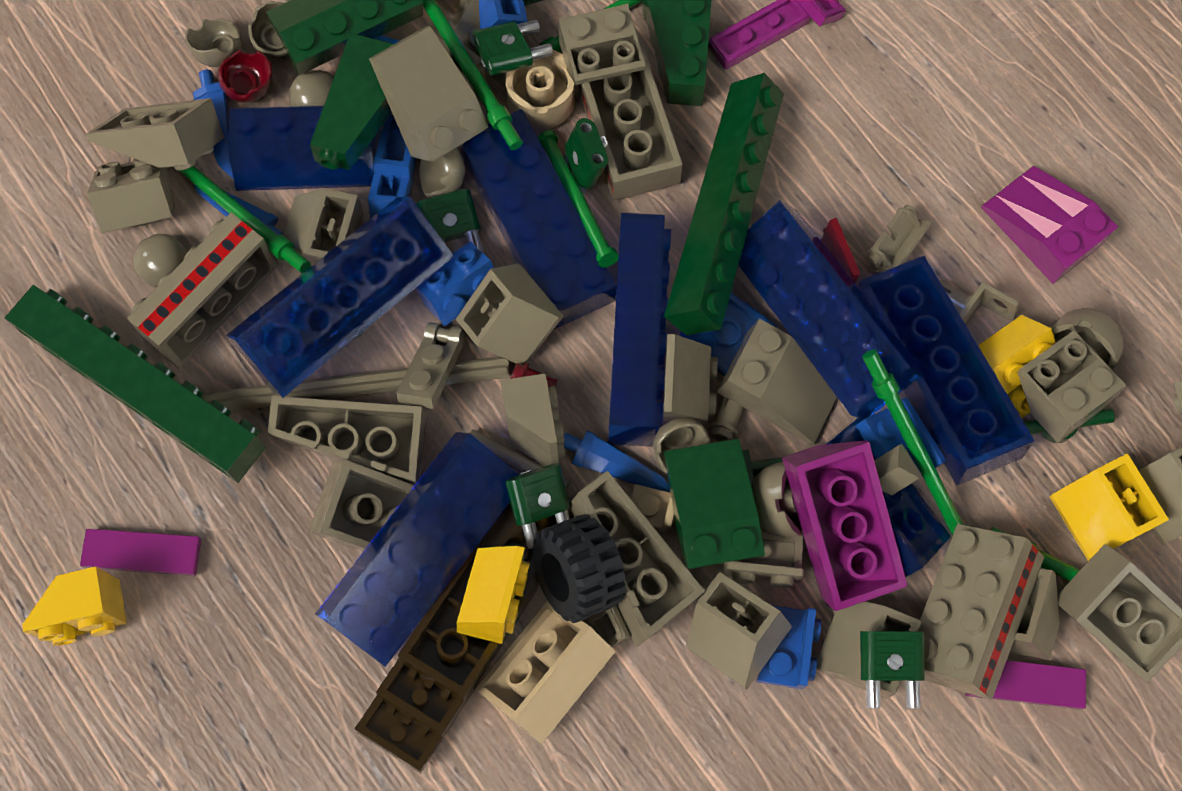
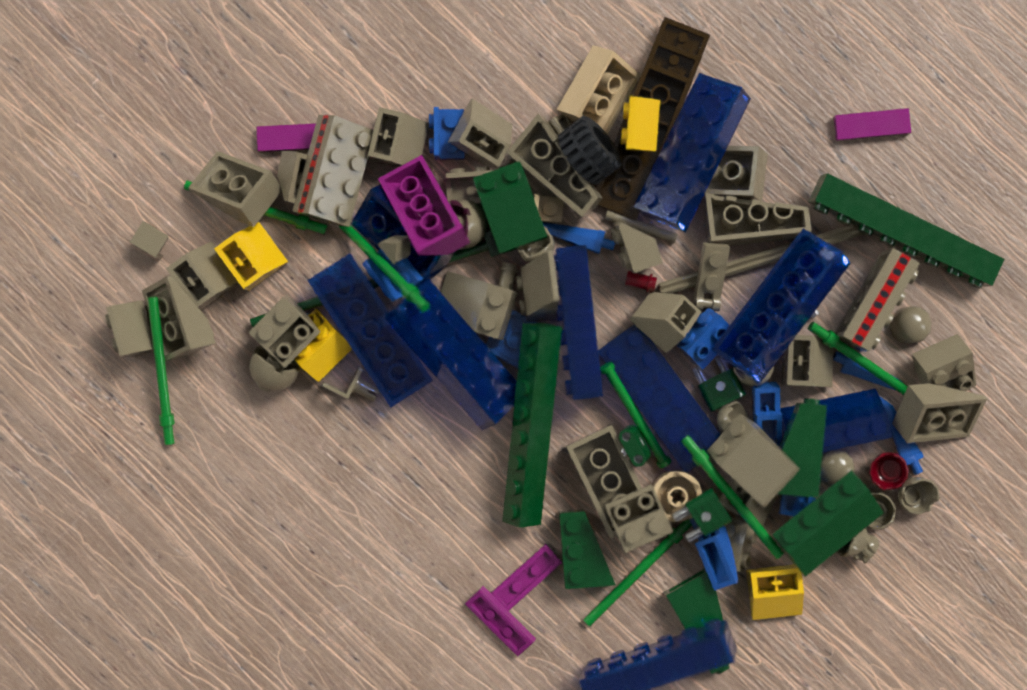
camera: 170 degrees right, 15 degrees up
(76, 606) = (899, 78): yellow slope -> none
(537, 496) = (623, 195): dark green piece -> none
(837, 245) = (447, 401): dark red piece -> none
(892, 658) = (384, 126): dark green piece -> none
(895, 249) = (409, 416): dark tan hinge -> none
(1049, 222) = (304, 459): magenta slope -> none

